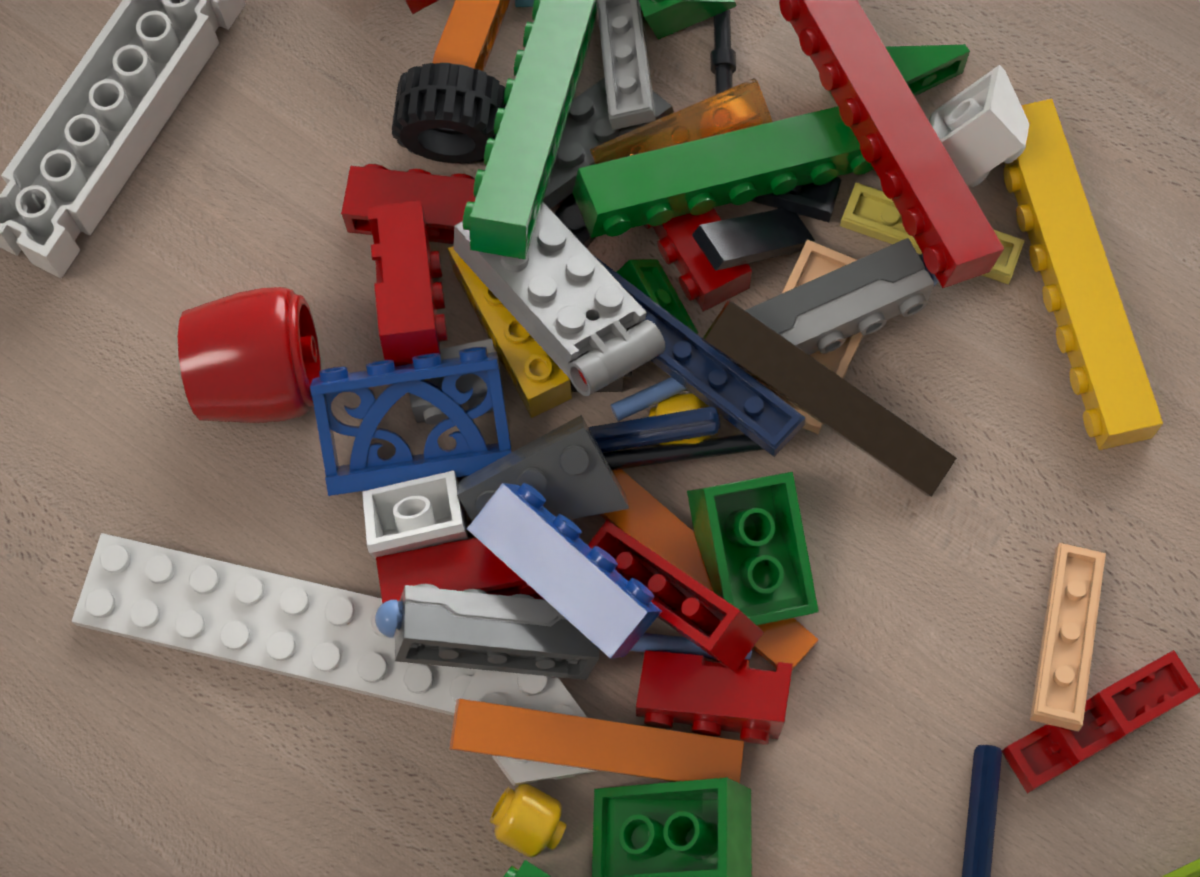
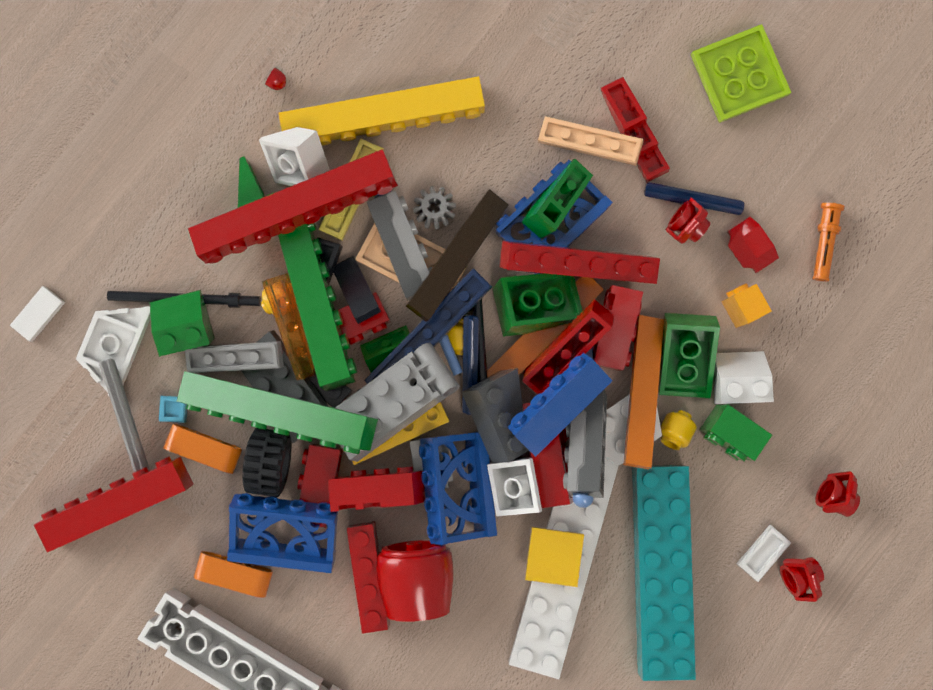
camera: 90 degrees left, 15 degrees up
(259, 801) = (663, 573): none -> teal brick
(265, 85) = (236, 576): none -> orange beam
(290, 597) = (554, 556): none -> yellow tile
(300, 134) = (272, 553): none -> blue fence
(316, 273) = (364, 555): none -> red brick
(832, 613) = (579, 262): none -> red brick
(912, 381) = (437, 198): none -> light grey gear
(927, 638) = (588, 214): none -> blue fence
(928, 826) = (689, 222): none -> red piece
(950, 570) = (557, 200): none -> green slope
(1111, 100) = (276, 80): none -> red hinge

